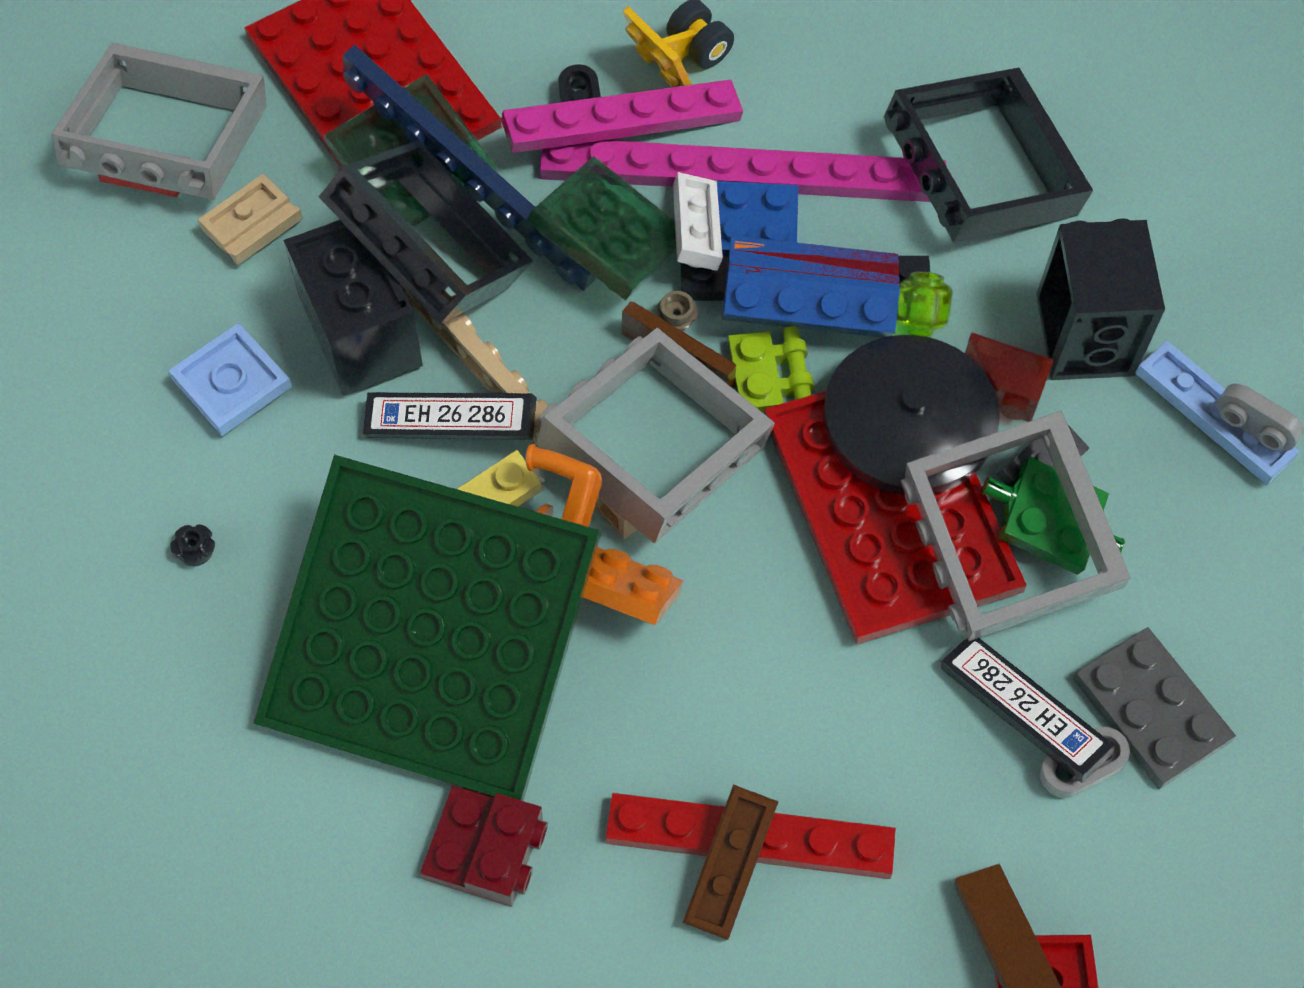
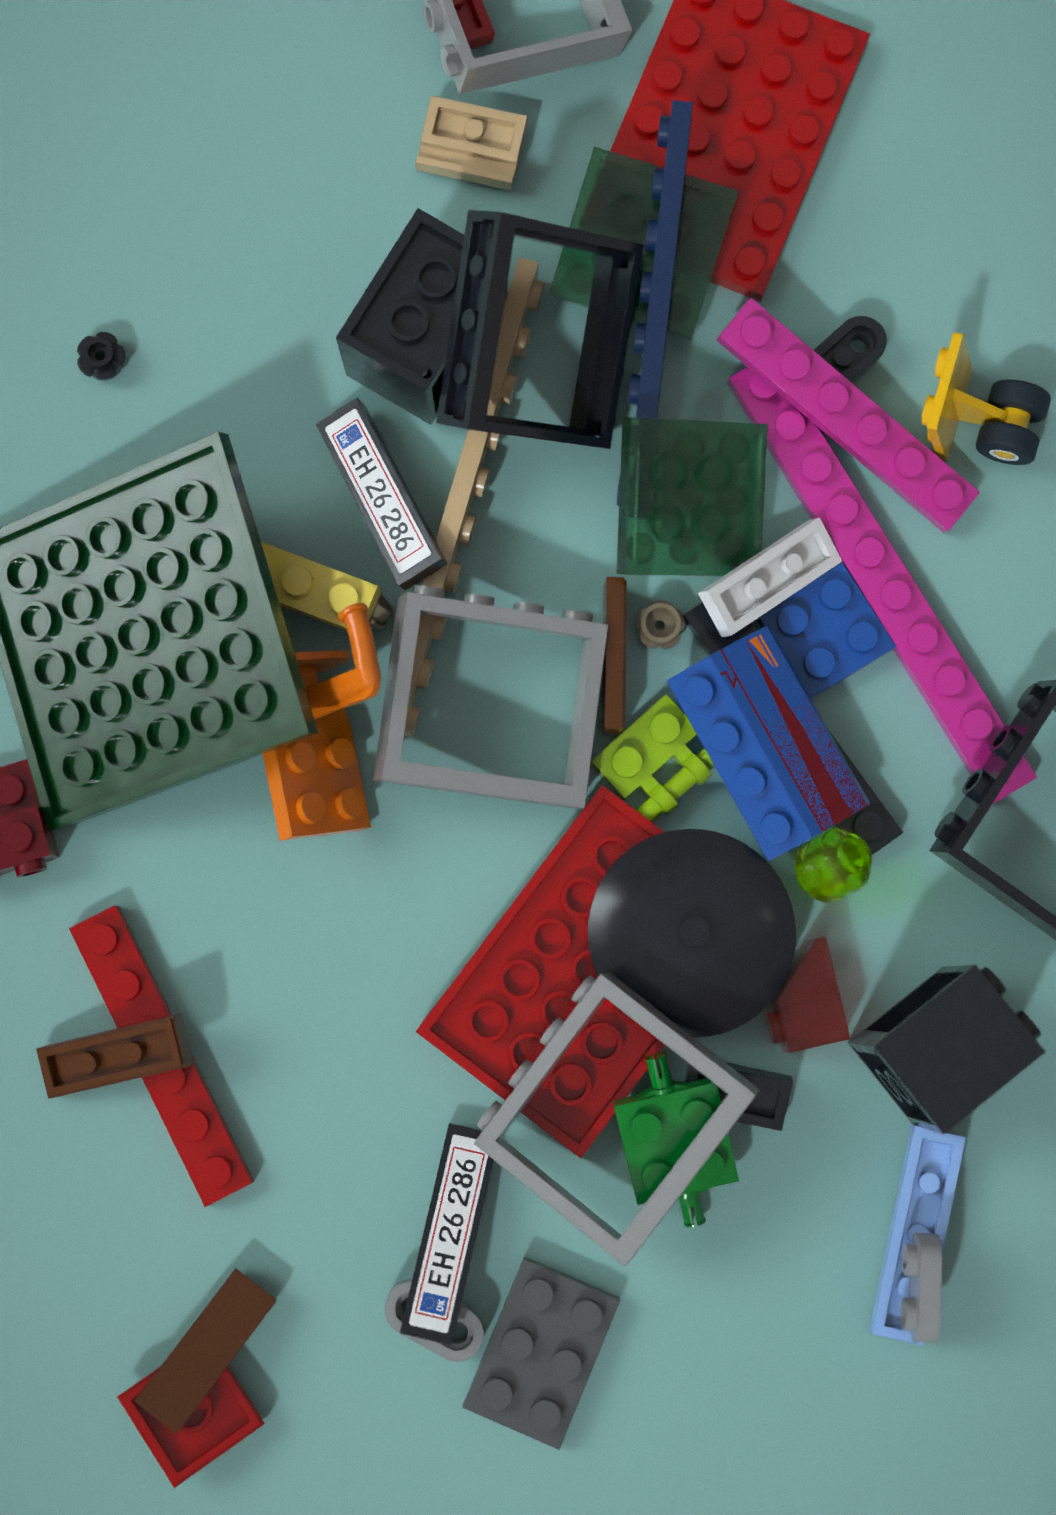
camera: 55 degrees right, 20 degrees up
(230, 379) = (287, 259): light blue plate -> none

